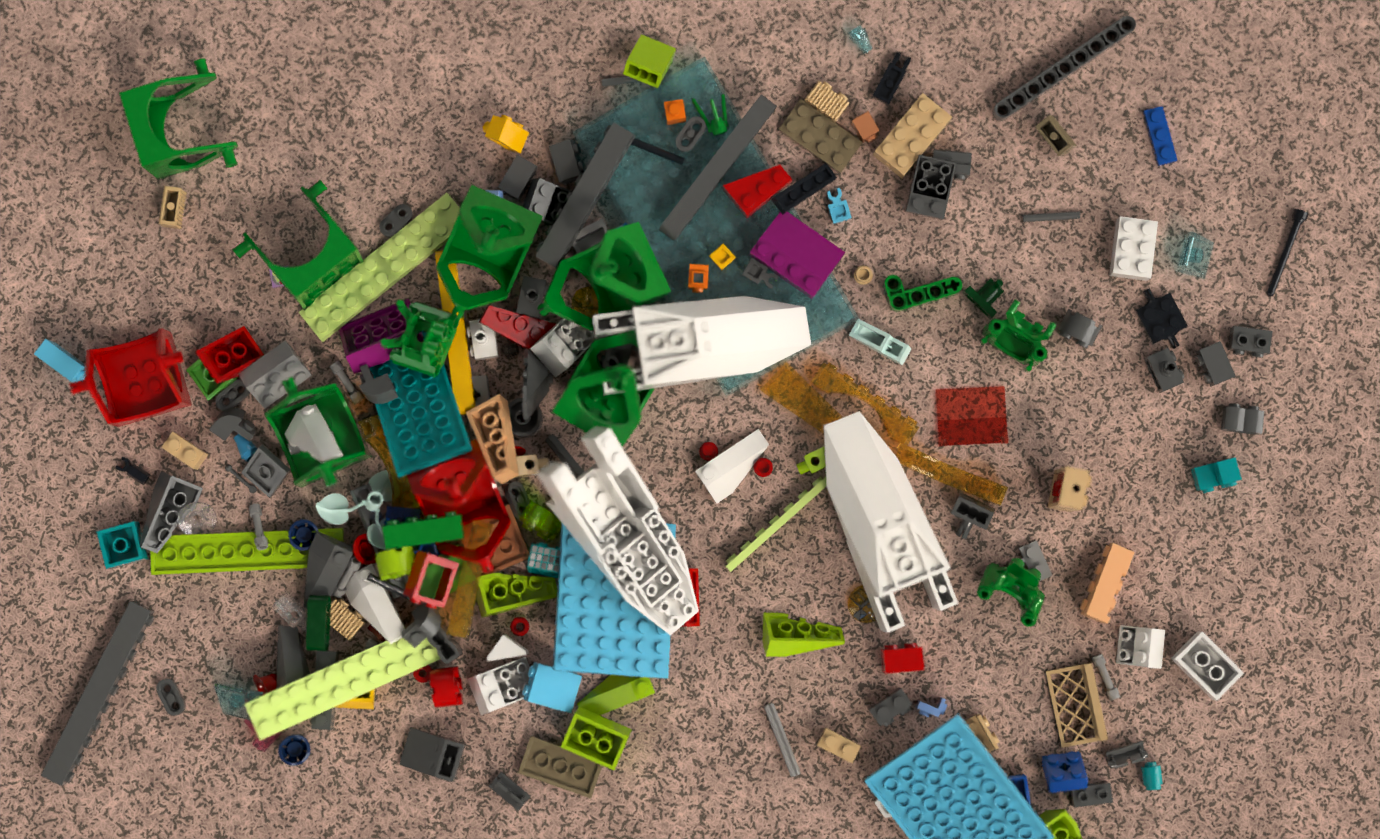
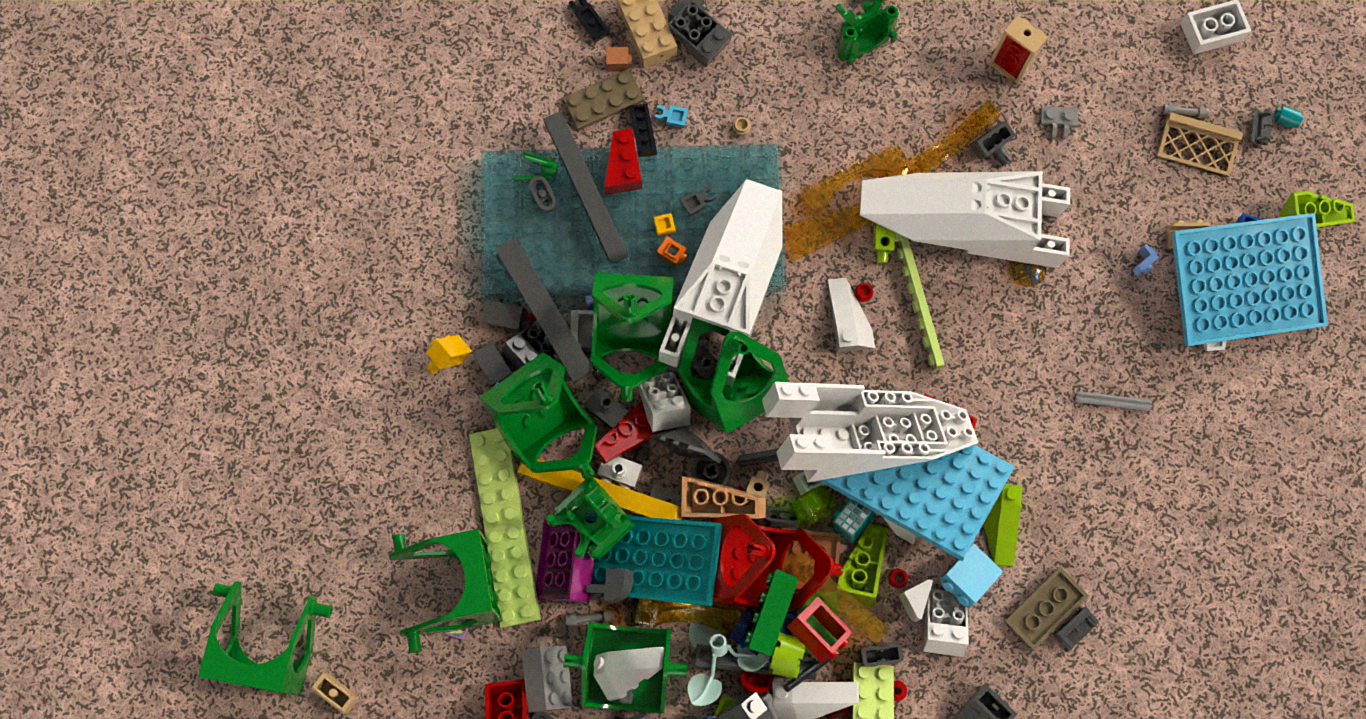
camera: 65 degrees left, 10 degrees down
(397, 221) = (467, 493): dark grey plate -> none
(425, 625) = (858, 659): dark grey brick -> none
(446, 687) = (923, 673): red brick -> none
(509, 791) = (1046, 668): dark grey hinge -> none
(557, 801) = (1076, 628): none -> dark grey hinge
(585, 301) = (635, 362): clear yellow dish -> none
(596, 738) = (1037, 560): lime brick -> none
(618, 81) = (462, 227): dark grey bar -> none
(649, 61) = (458, 198): lime brick -> none
(658, 151) = (542, 229): black bar -> none
(675, 112) = (516, 196): orange brick -> none
(708, 451) = (825, 330): red plate -> none
(791, 637) = (1027, 344): lime wedge -> none
(797, 254) = (698, 162): magenta slope -> none
(827, 101) = (577, 77): tan brick -> none
(838, 745) = (1142, 354): tan brick -> none
(860, 39) = (541, 25): clear light blue cone -> none
(880, 341) = (806, 141): light aqua slope -> none
(890, 706) = (1129, 294): dark grey brick -> none
(902, 659) = (1093, 260): red brick -> none
(924, 292) = (784, 85): green beam -> none
(971, 416) = (908, 103): clear red piece -> none
(985, 296) = (814, 42): dark green piece -> none
(1018, 583) = (1076, 134): green piece -> none
(1064, 772) = (1254, 181): blue brick -> none
(1093, 795) = (1282, 171): dark grey brick -> none
(1107, 583) = (1108, 68): light nougat wedge -> none
(1140, 646) = (1173, 71): white slope -> none

